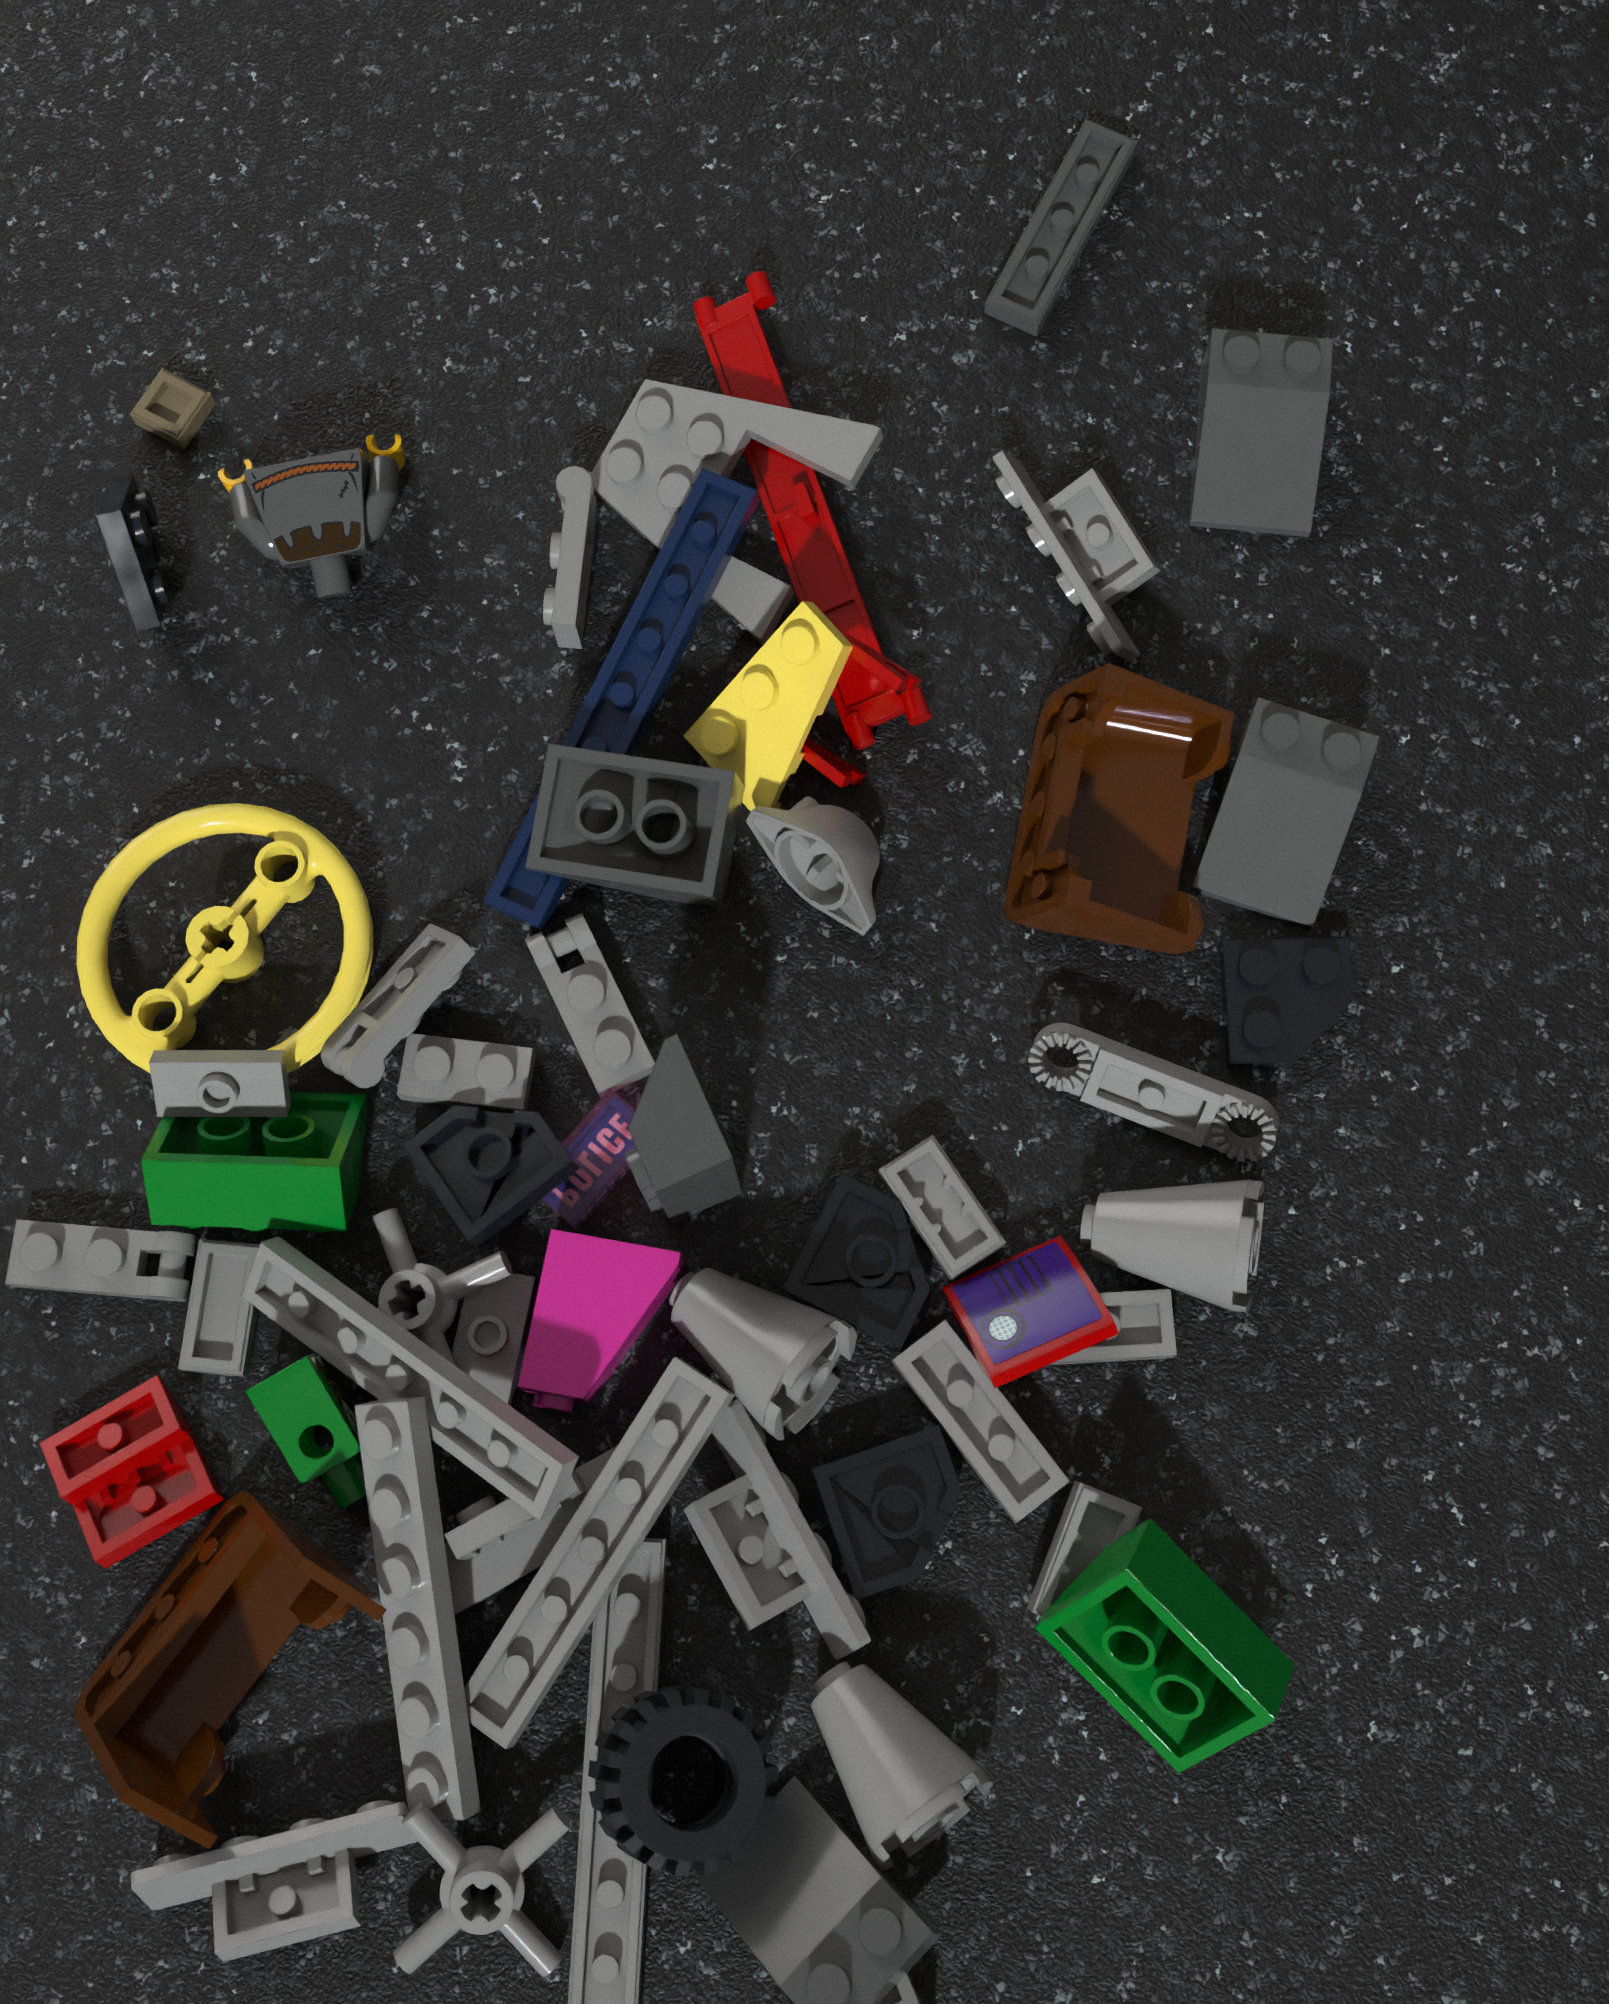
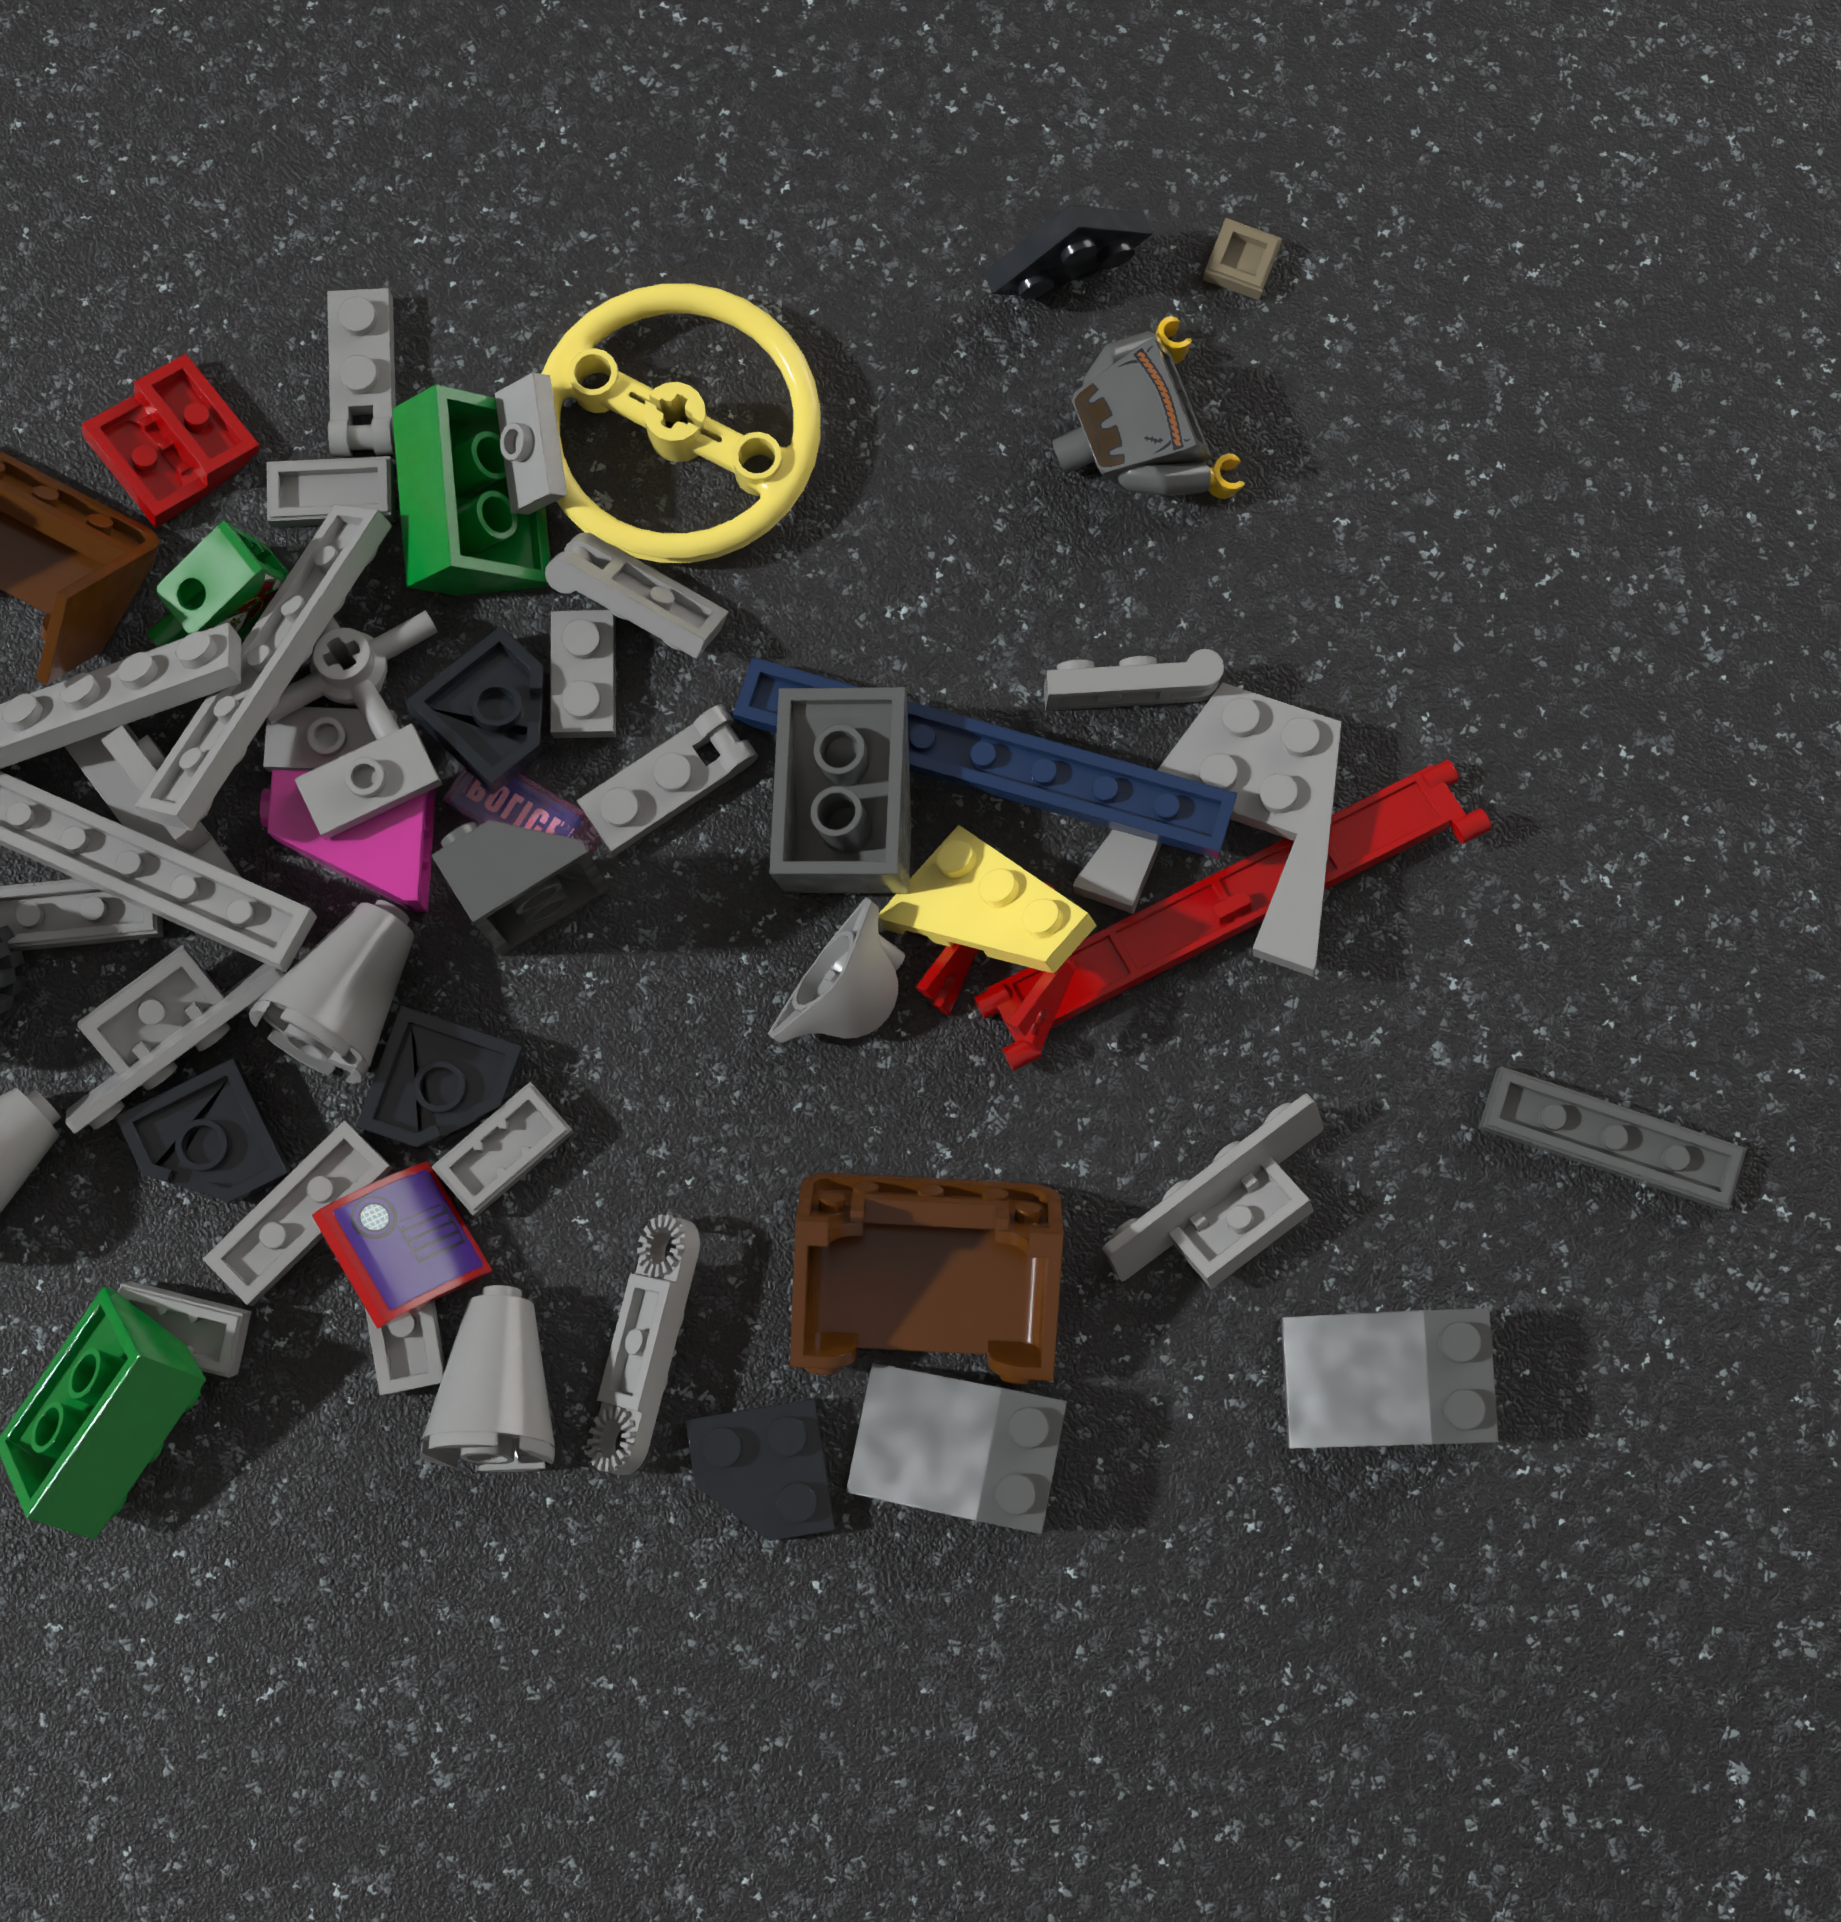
camera: 75 degrees right, 5 degrees up
(549, 1283) = (368, 781): none -> light grey plate

